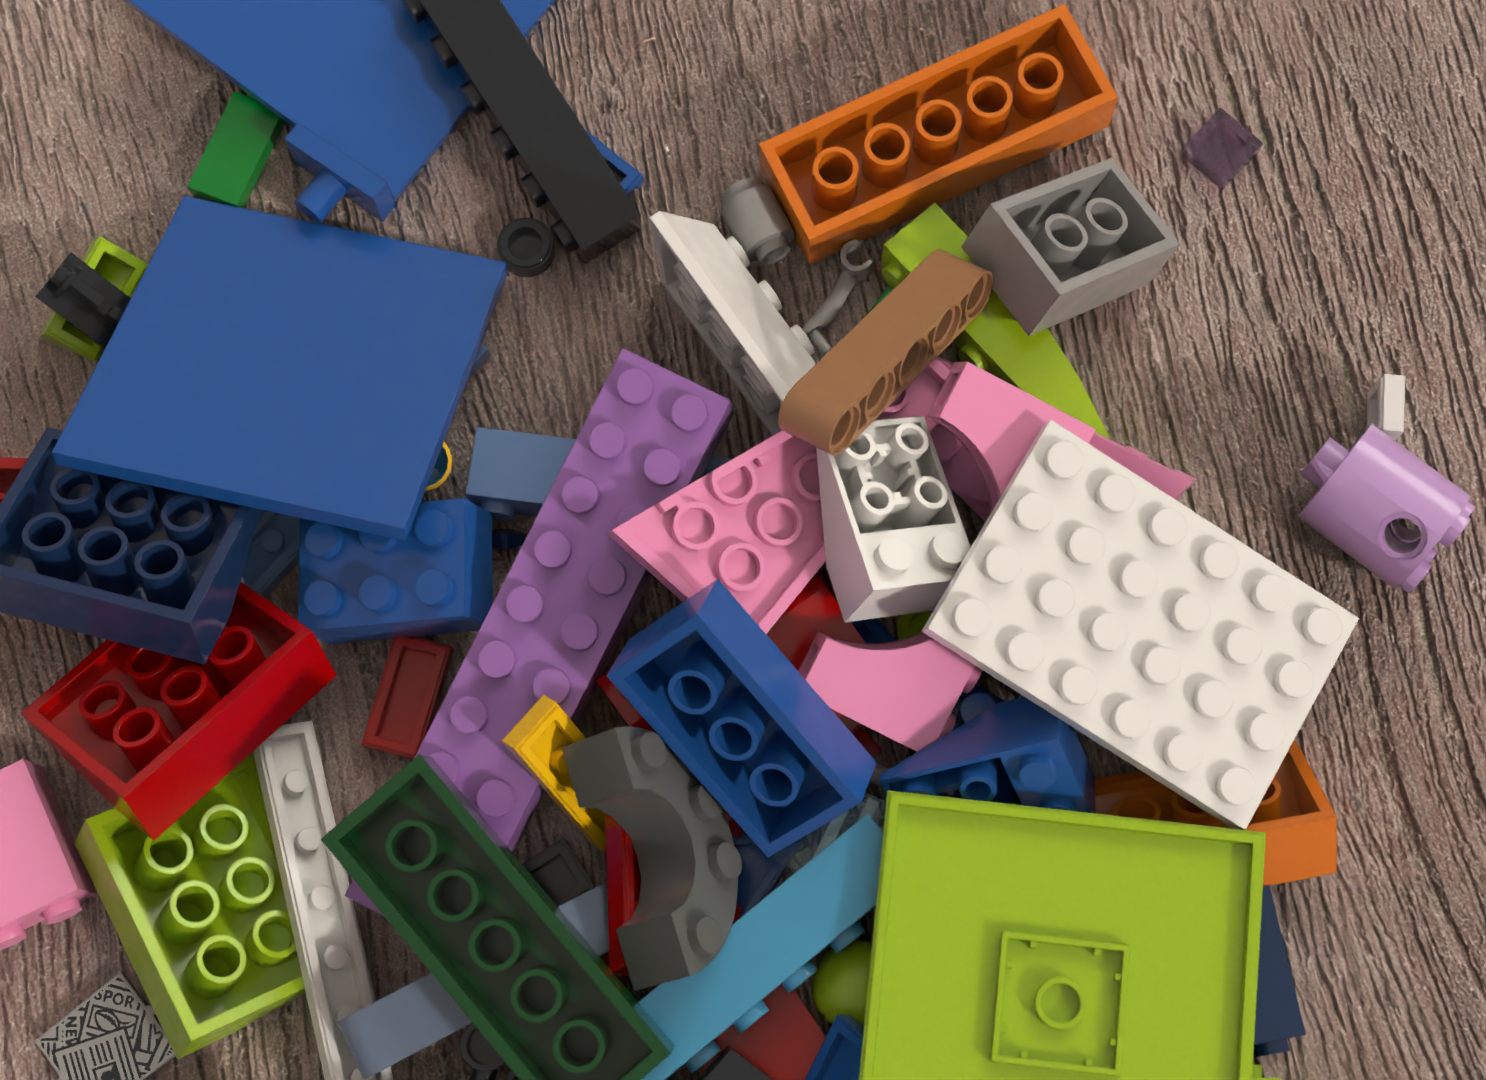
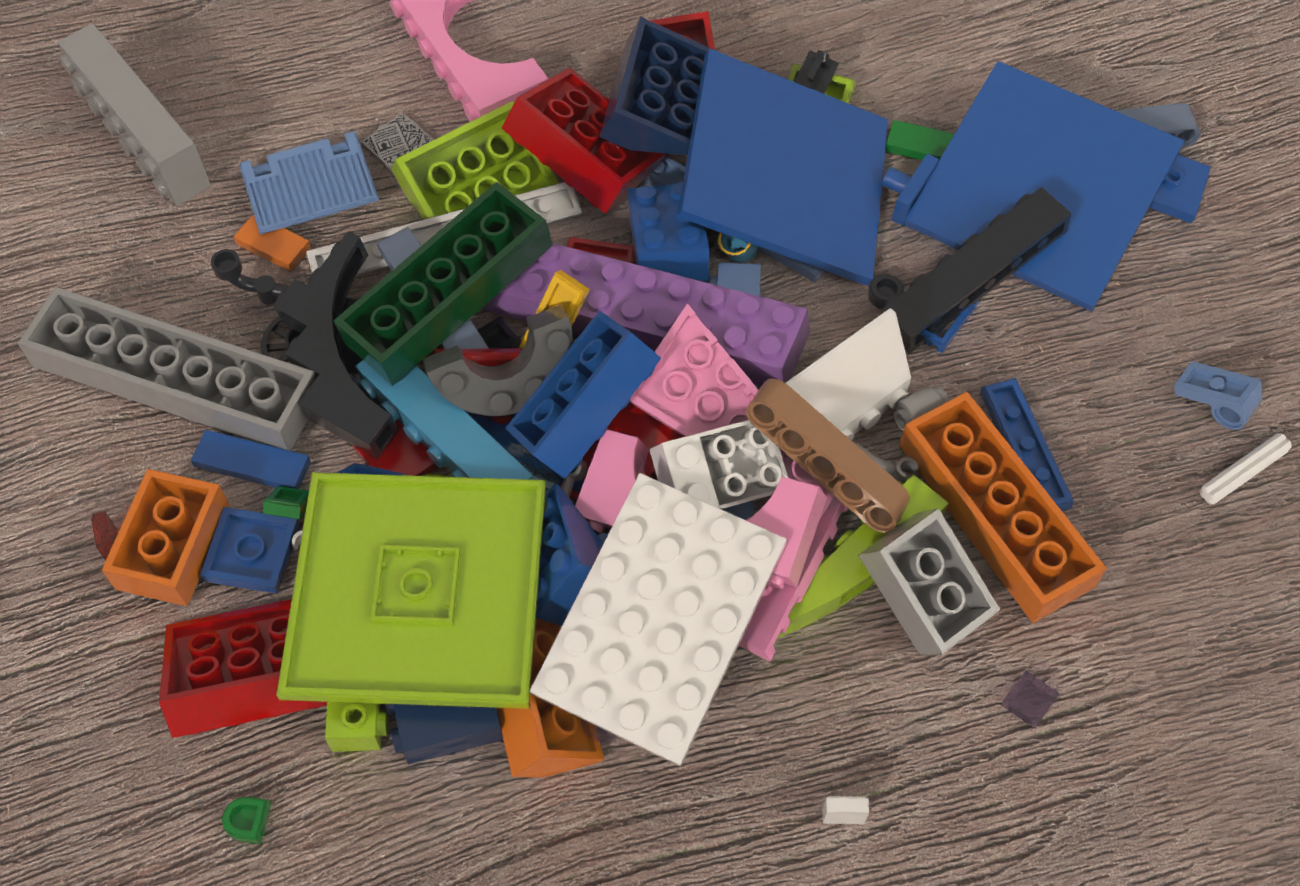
camera: 80 degrees right, 15 degrees down
(810, 87) = (1019, 428): none -> blue tile
(1367, 492) = (769, 799): lavender cylinder -> none

